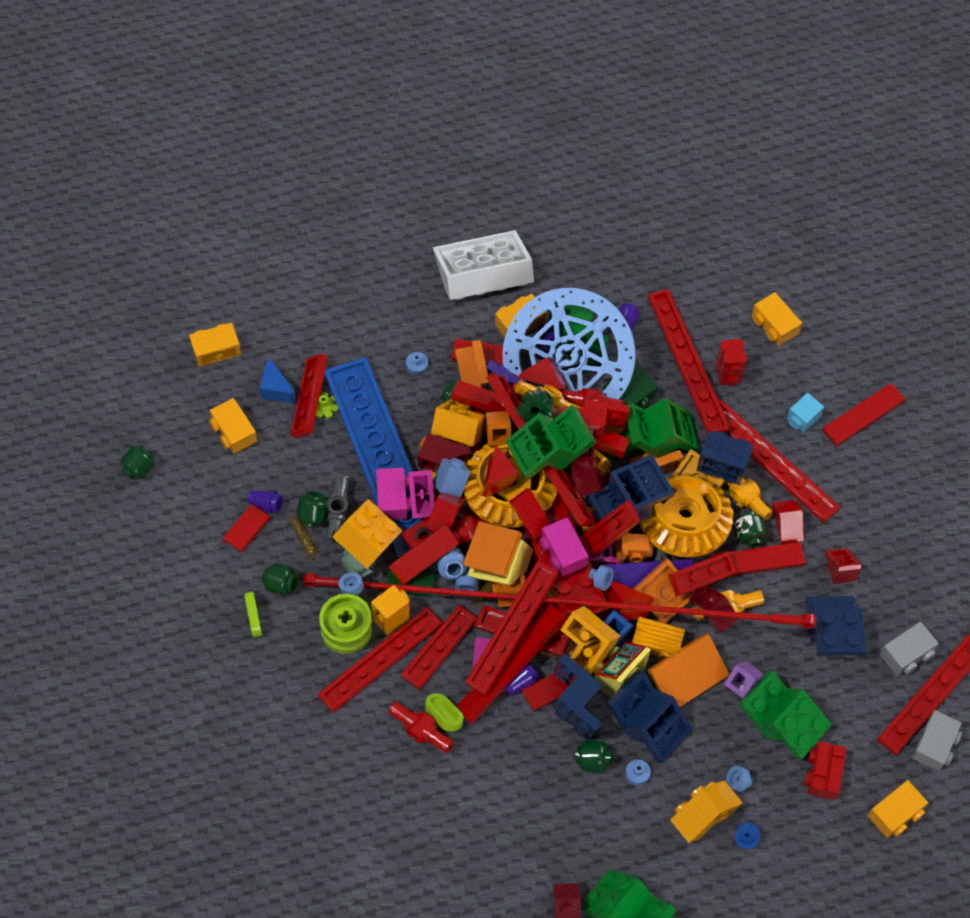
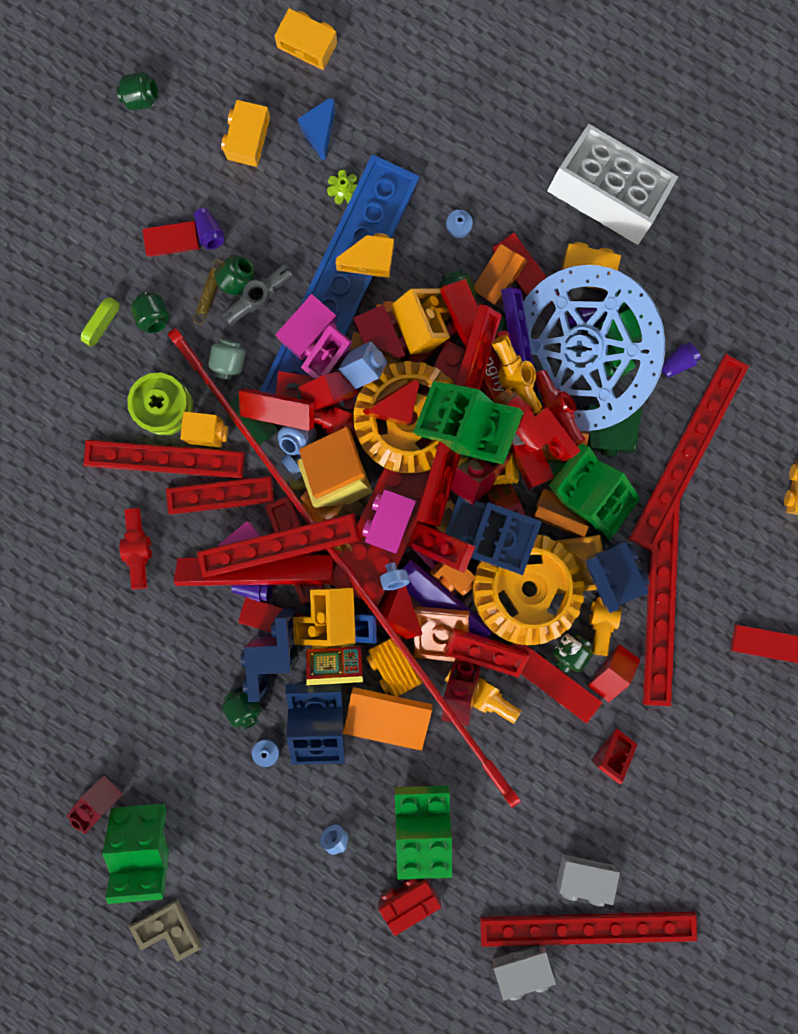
camera: 50 degrees right, 25 degrees up
(309, 396) = (337, 166): red tile -> none
(351, 584) = (193, 376): medium blue tile -> none
(367, 533) = (245, 346): light orange brick -> none
(387, 422) = (368, 256): none -> light orange slope
(444, 712) = (164, 555): lime tile -> none
(497, 427) = (445, 360): orange brick -> none
(530, 513) = (390, 465): red tile -> none
(534, 403) = (491, 375): dark green brick -> none
(544, 373) = (543, 347): red slope -> none
(705, 809) = (278, 842): light orange brick -> none
(731, 362) = (722, 492): red brick -> none
(743, 678) = (424, 771): medium lavender brick -> none
(747, 835) = (293, 888): blue tile -> none
(805, 413) = (735, 597): medium azure brick -> none
(838, 625) = (548, 804): dark blue bracket -> none
(898, 809) = (430, 991): light orange brick -> none

